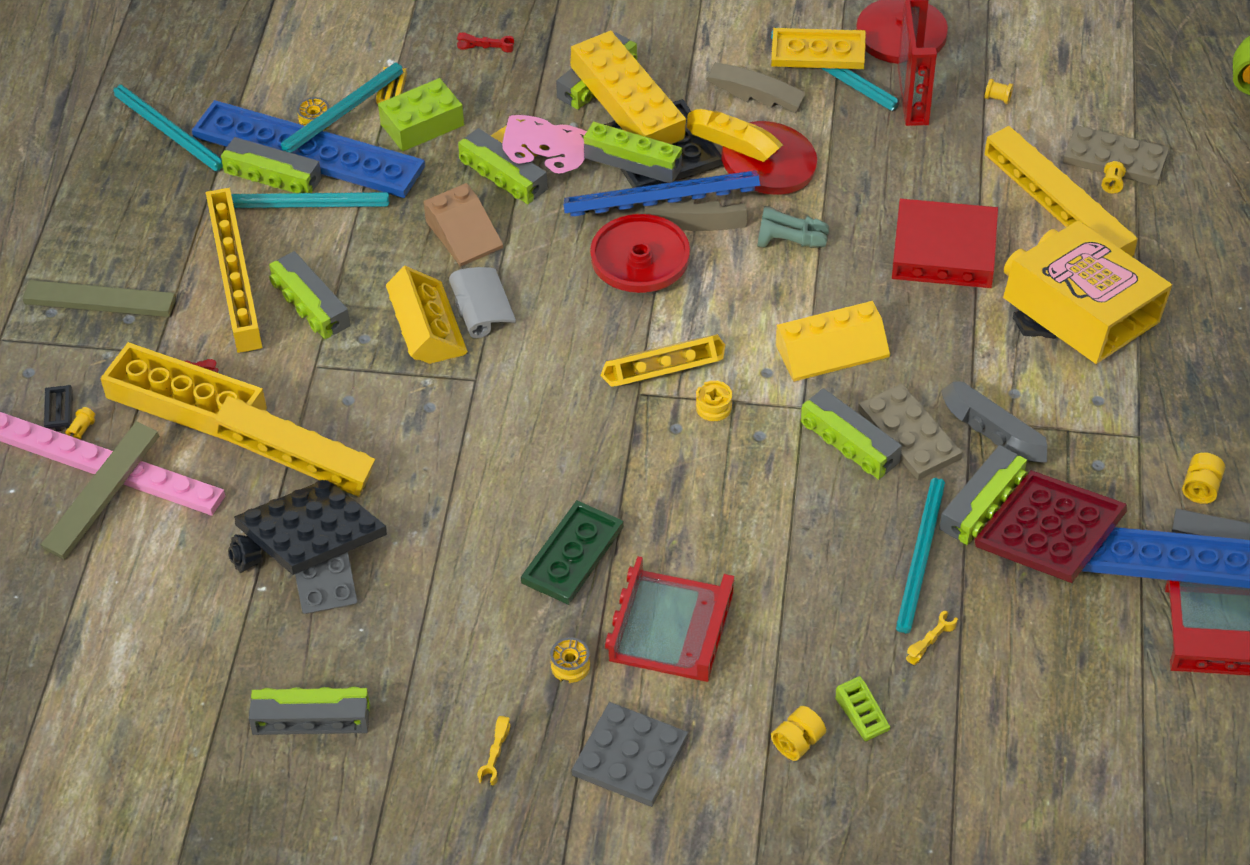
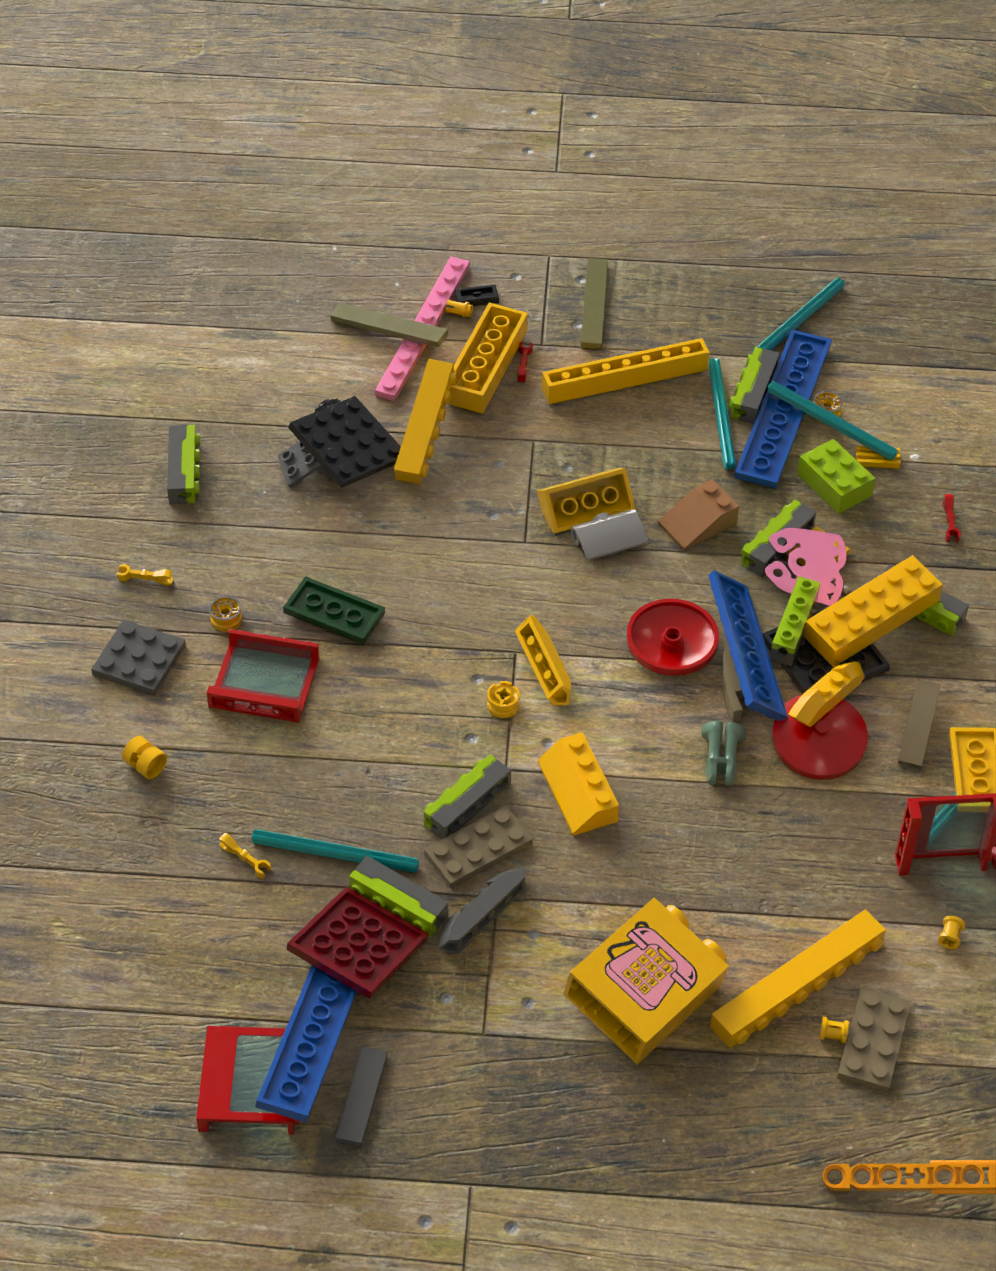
camera: 85 degrees right, 0 degrees up
(309, 295) = (604, 423): piece -> none
(857, 691) = (183, 807): lime slope -> none
(945, 243) = (720, 872): red panel -> none
(1203, 478) = (420, 1073): yellow wheel -> none

